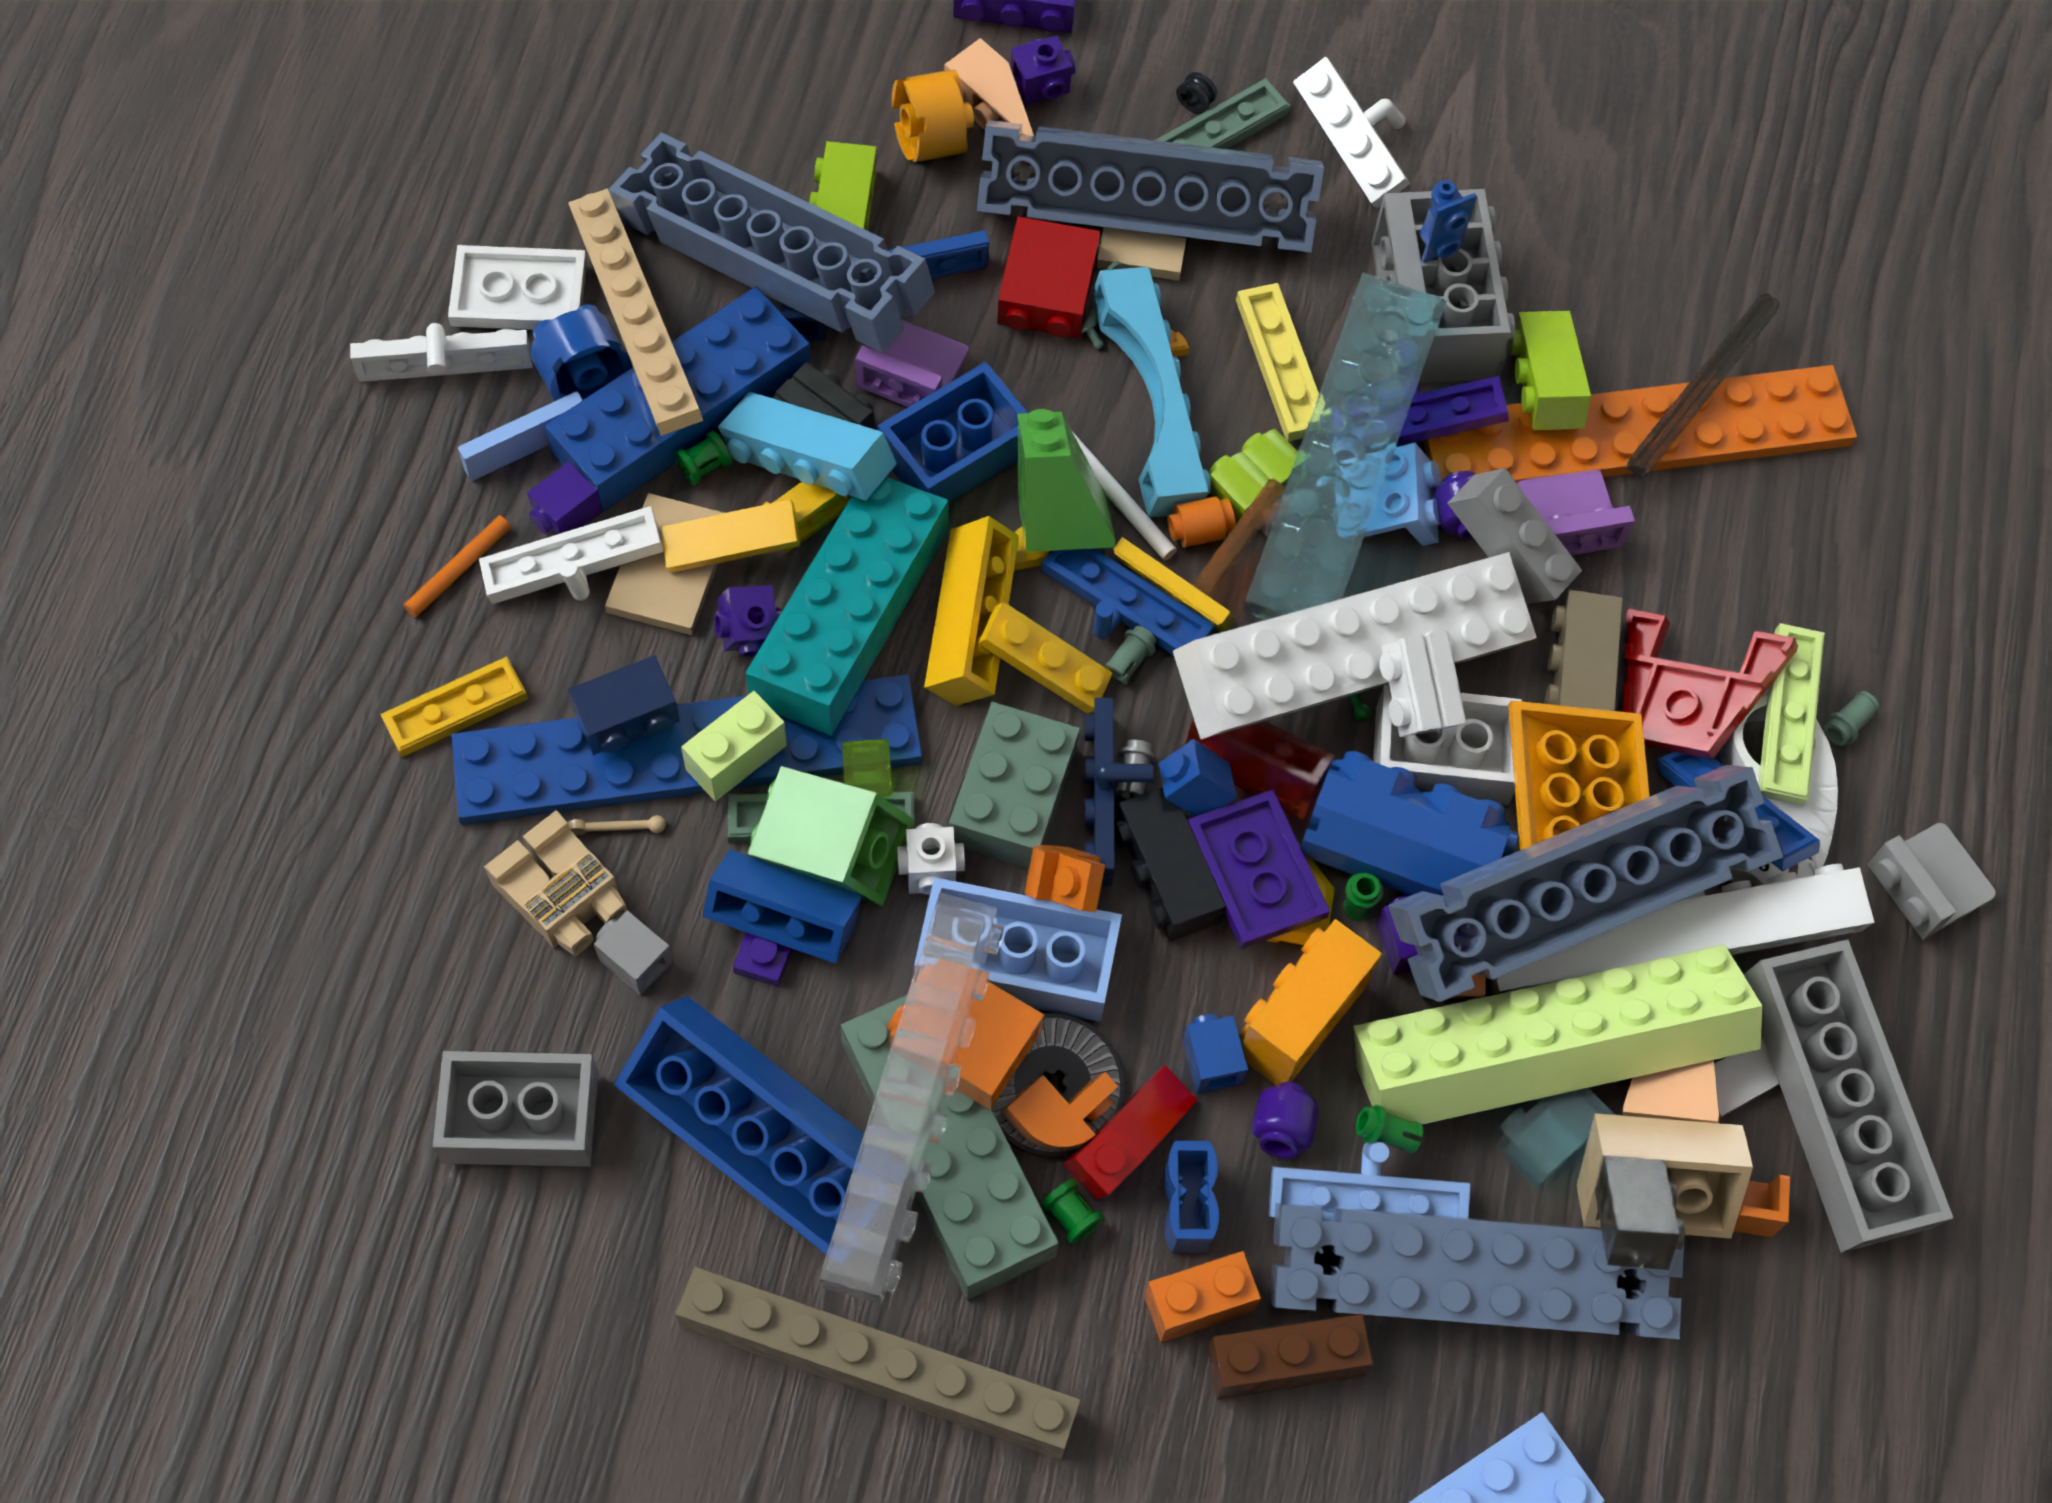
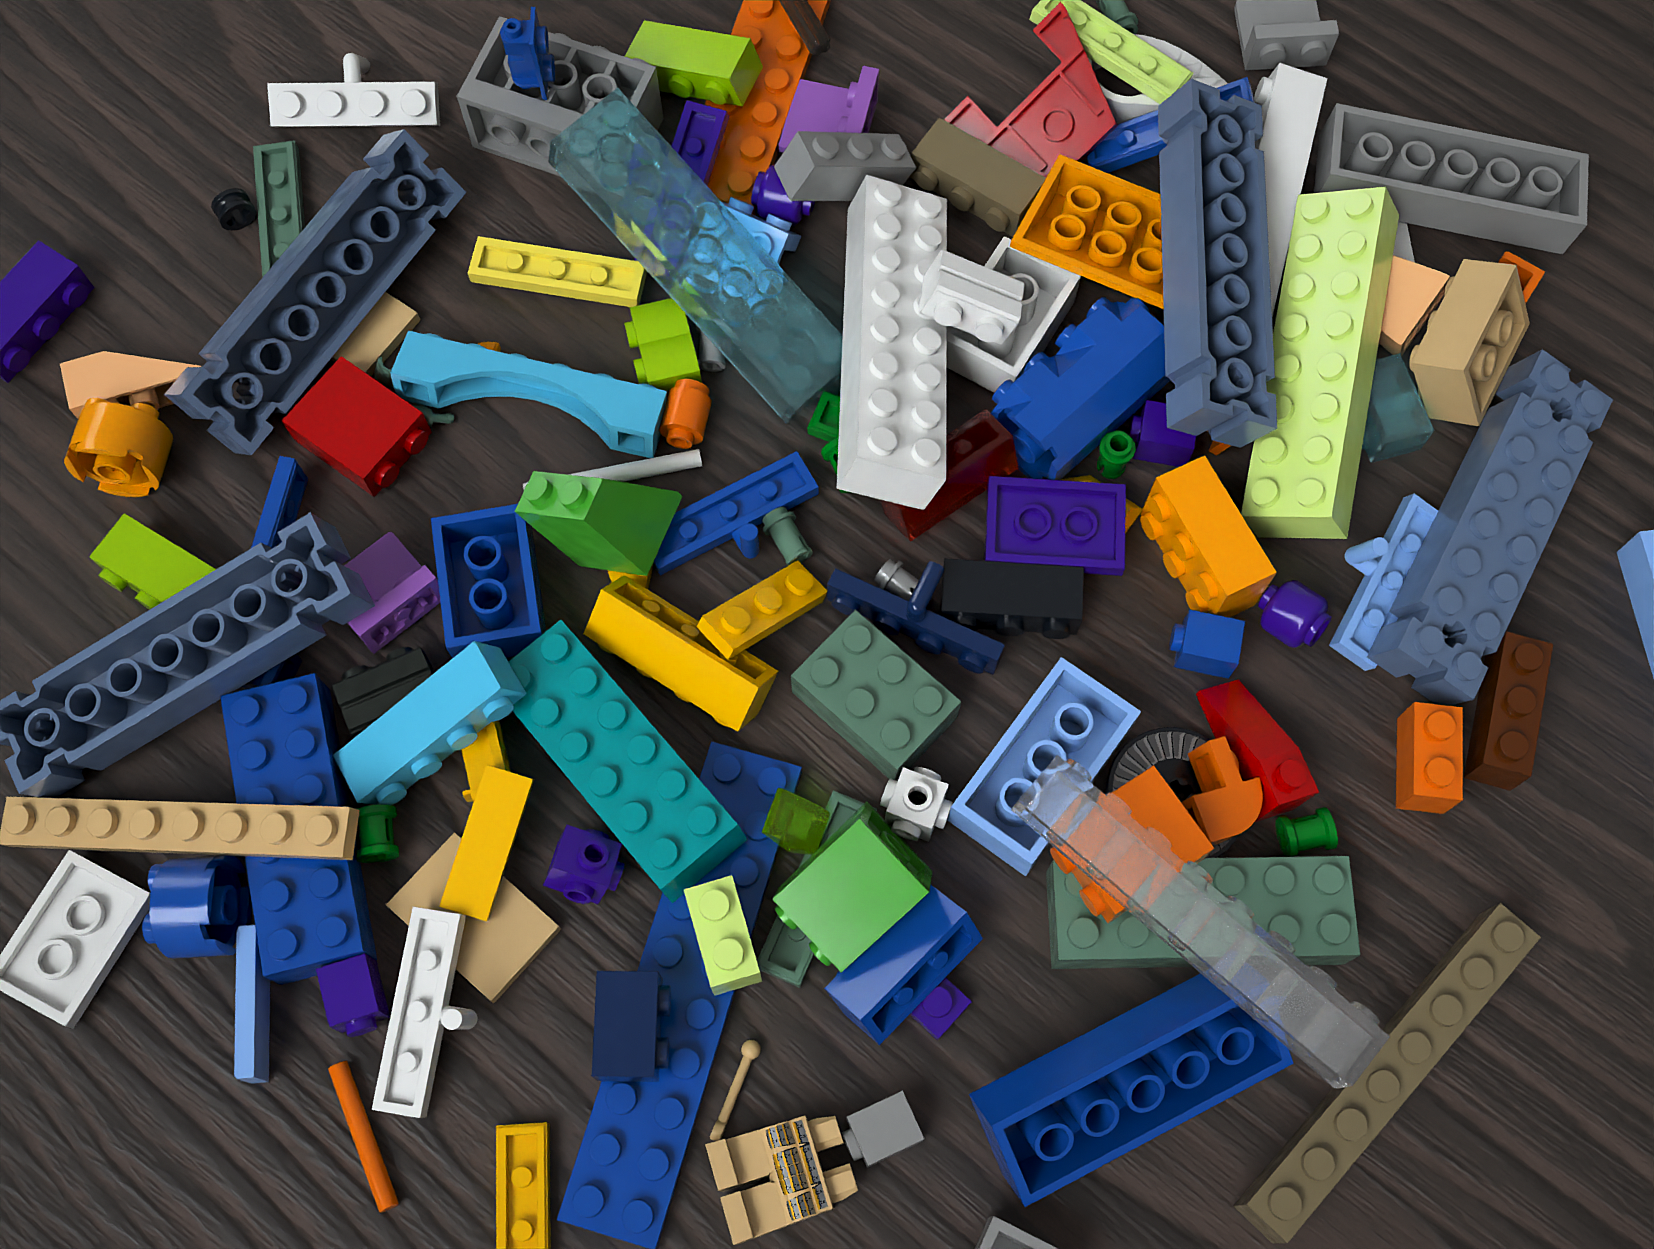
camera: 60 degrees left, 5 degrees up
(441, 354) = (105, 1053): white plate -> none
(1042, 69) = (127, 324): dark purple brick -> none
(1065, 876) = (1001, 689): orange brick -> none
(1172, 584) = (740, 466): yellow tile -> none
(1193, 1206) = (1349, 729): blue brick -> none
(1197, 779) = (954, 533): blue brick -> none
(1240, 537) = (729, 388): clear orange tile -> none
(1380, 1126) = (1352, 537): green pin -> none
(1638, 1213) = (1525, 368): clear smoke brick -> none

